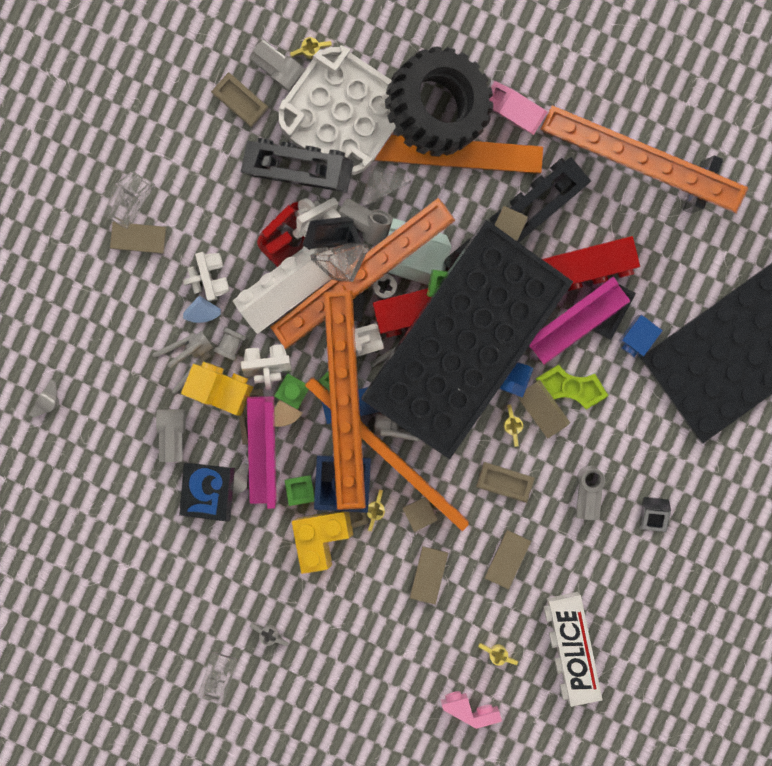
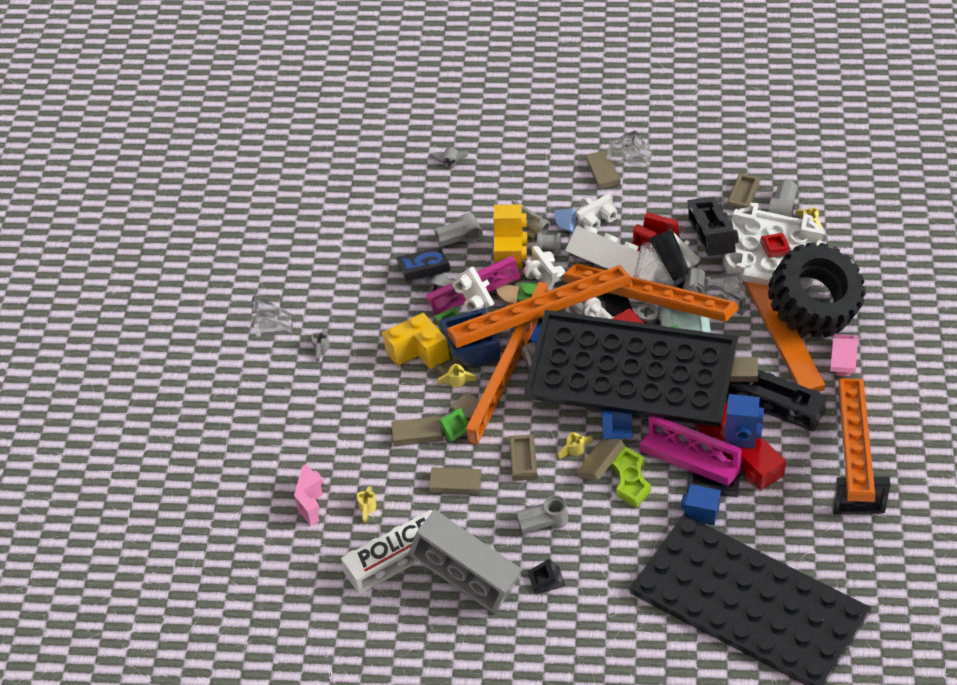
camera: 75 degrees right, 40 degrees down
(289, 457) = (473, 290): none -> white hips
(345, 108) = (775, 245): none -> red tile
(442, 537) = (454, 424): none -> bright green plate
(591, 263) = (743, 421): none -> blue brick
(634, 595) = (464, 561): none -> light grey brick

